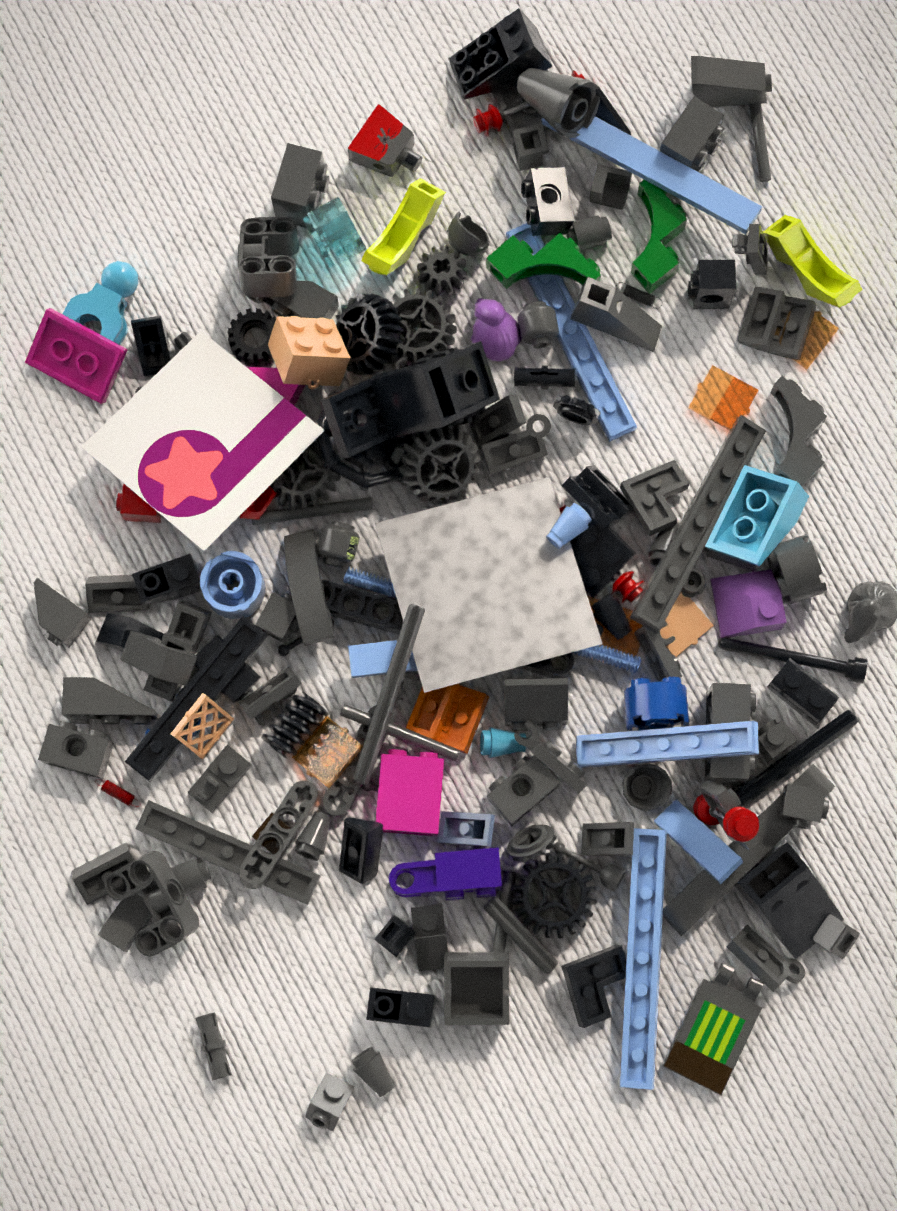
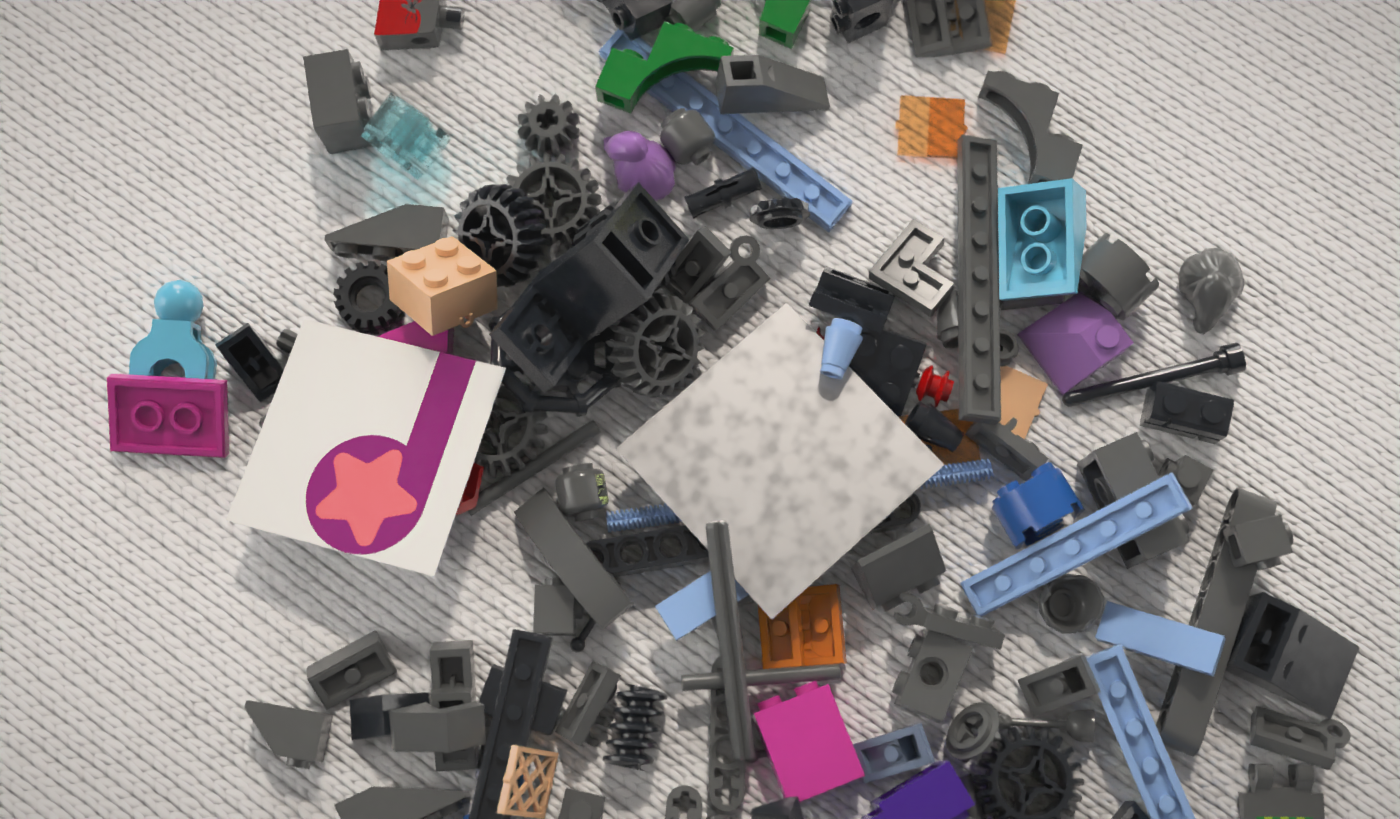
camera: 30 degrees left, 0 degrees up
(135, 508) = (322, 561): red brick -> none
(168, 580) = (404, 628): black slope -> none
(224, 570) = (465, 585): light blue brick -> none
(265, 256) = (339, 199): dark grey beam -> none
(327, 752) = (688, 739): clear orange piece -> none
(401, 234) = (483, 96): neon yellow arch -> none
(467, 236) = (558, 74): dark grey hair -> none
(499, 742) = (878, 633): medium azure cone -> none
(639, 295) = (783, 54): dark grey piece -> none
(720, 806) = (1163, 586): plate -> none
(796, 757) = (1203, 512): black axle -> none
(836, 936) = (1361, 671): slope -> none

